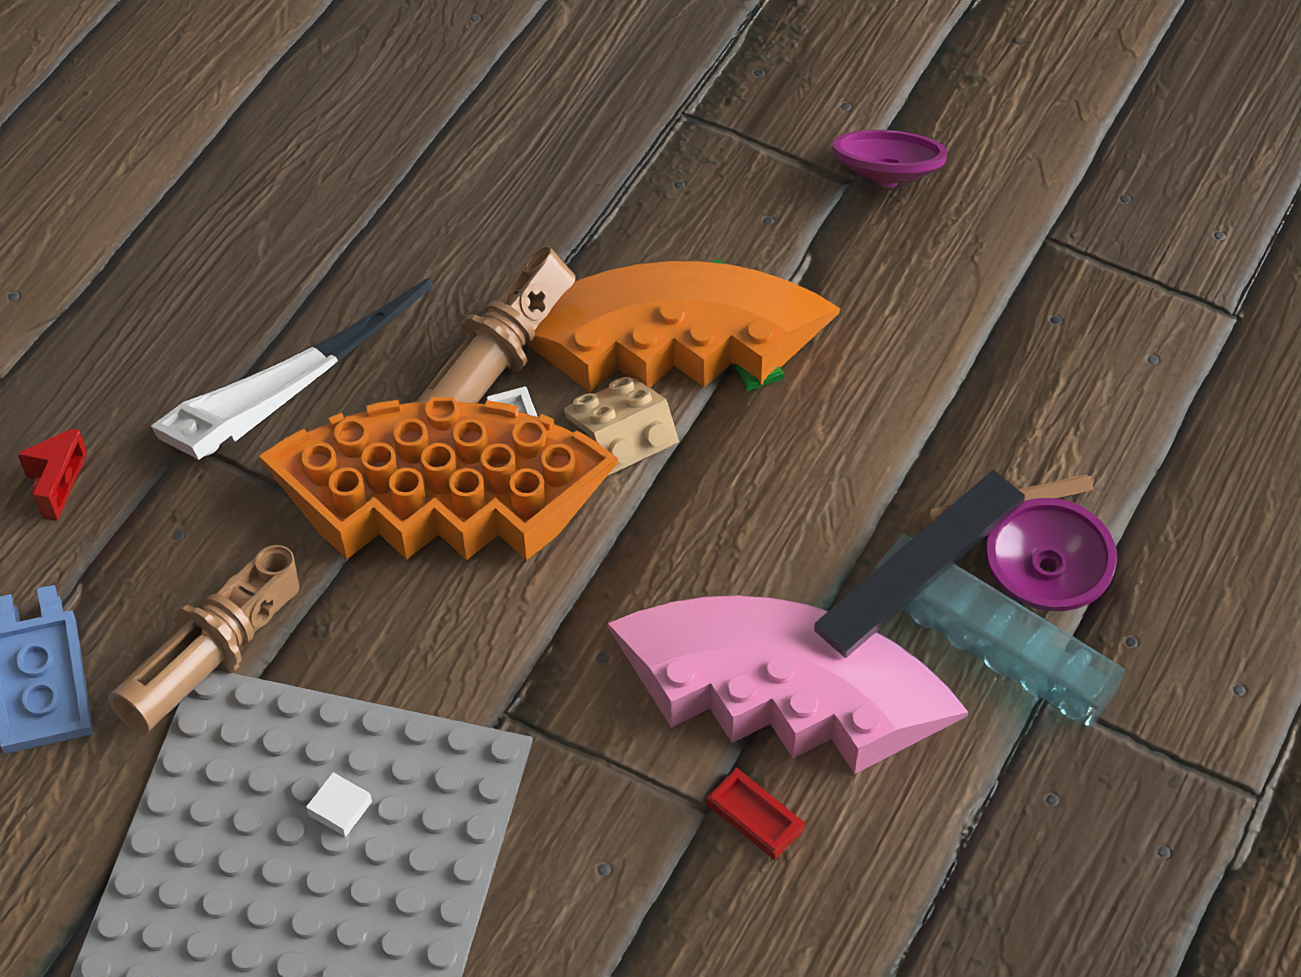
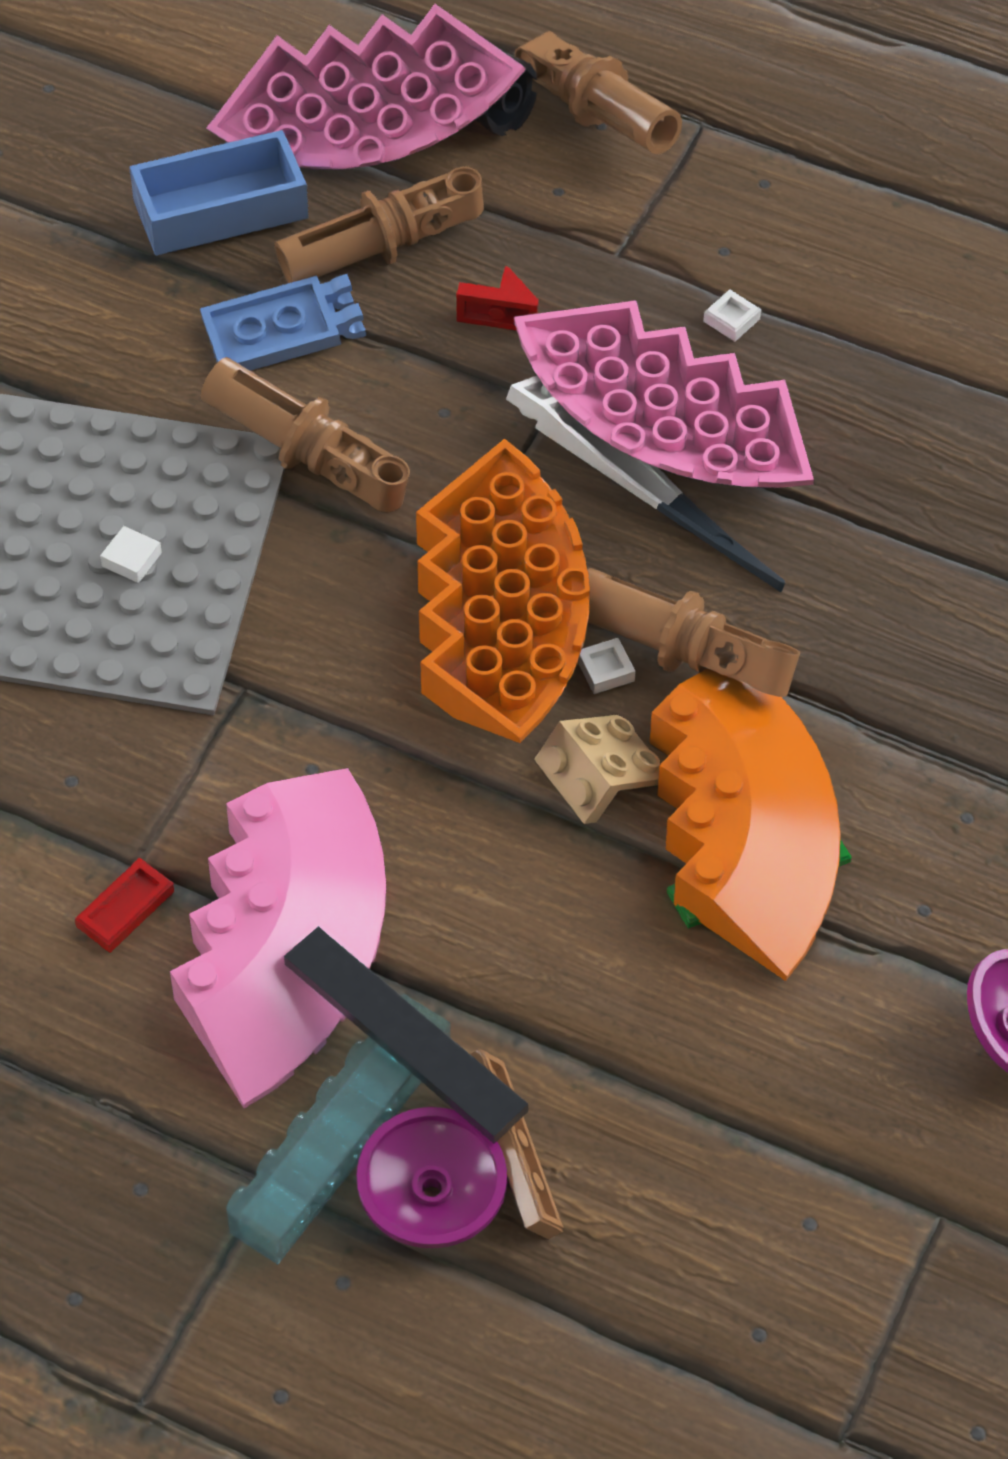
camera: 85 degrees right, 0 degrees up
(102, 292) = (732, 315): none -> white tile
(225, 337) = (662, 402): none -> bright pink brick

